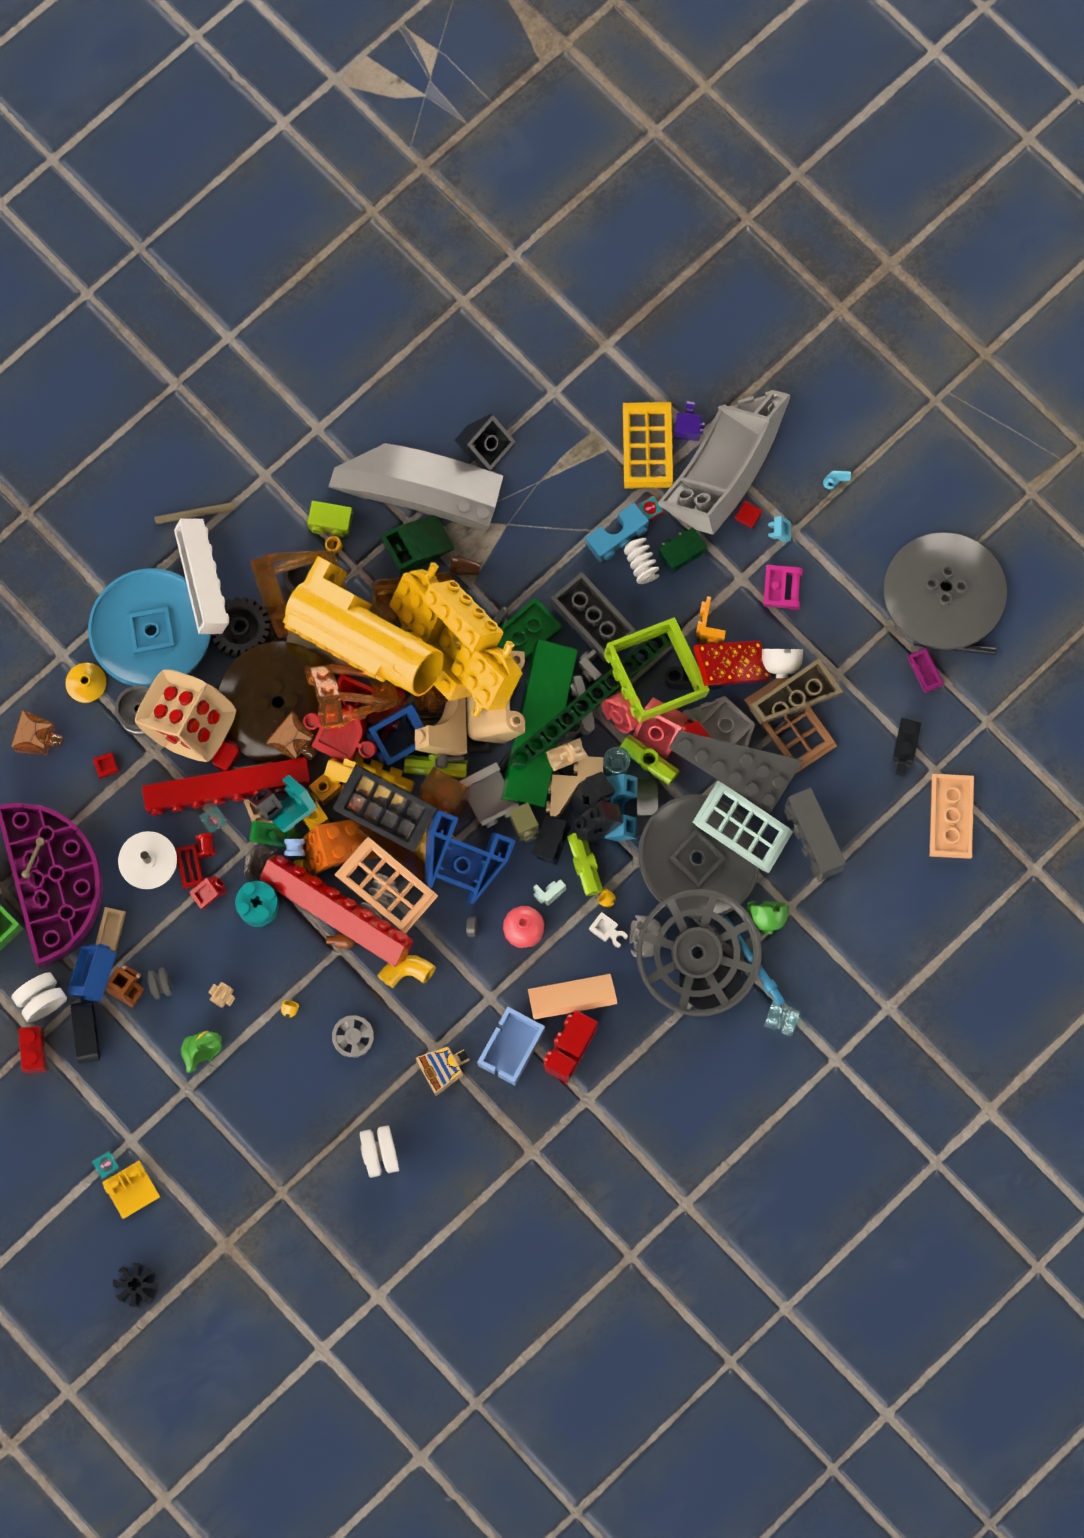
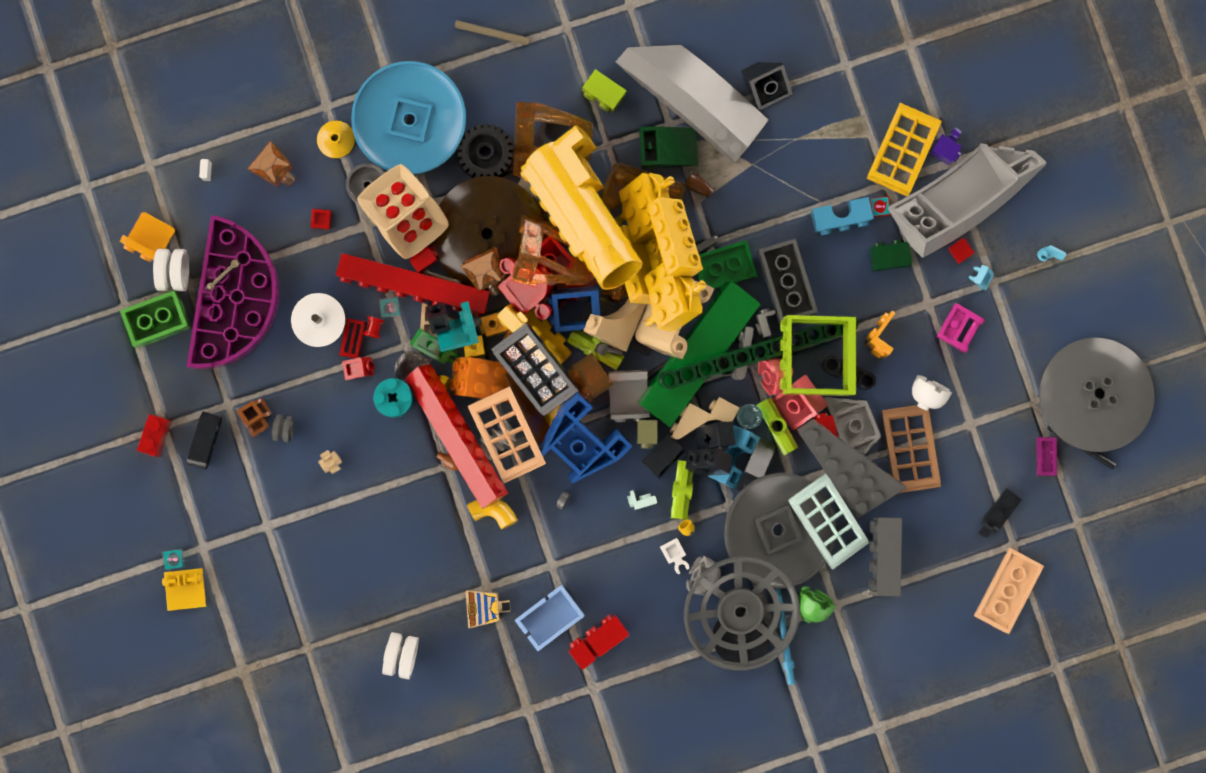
camera: 20 degrees right, 10 degrees up
(39, 997) = (177, 395): white wheel -> none
(91, 972) = (229, 394): blue window -> none
(111, 928) = (263, 362): tan tile -> none
(139, 1290) = (155, 679): black gear -> none
(200, 1048) = (292, 498): bright green hair -> none
(201, 576) = (471, 93): white brick -> none
(289, 1007) = (382, 498): yellow hinge -> none
(294, 847) = (445, 365): light blue wheel -> none
(331, 543) = (594, 113): yellow hinge -> none
(352, 1036) = (423, 546): light grey piece -> none
(523, 926) = (606, 519): coral cylinder -> none
(566, 754) = (709, 392): tan hips -> none
(572, 996) = (619, 599): light nougat tile -> none
(640, 561) = (850, 250): white piece -> none
(731, 663) = (885, 377): red tile -> none
(782, 1018) = (785, 698): clear light blue wheel -> none
(801, 691) = (934, 427): dark tan wedge -> none

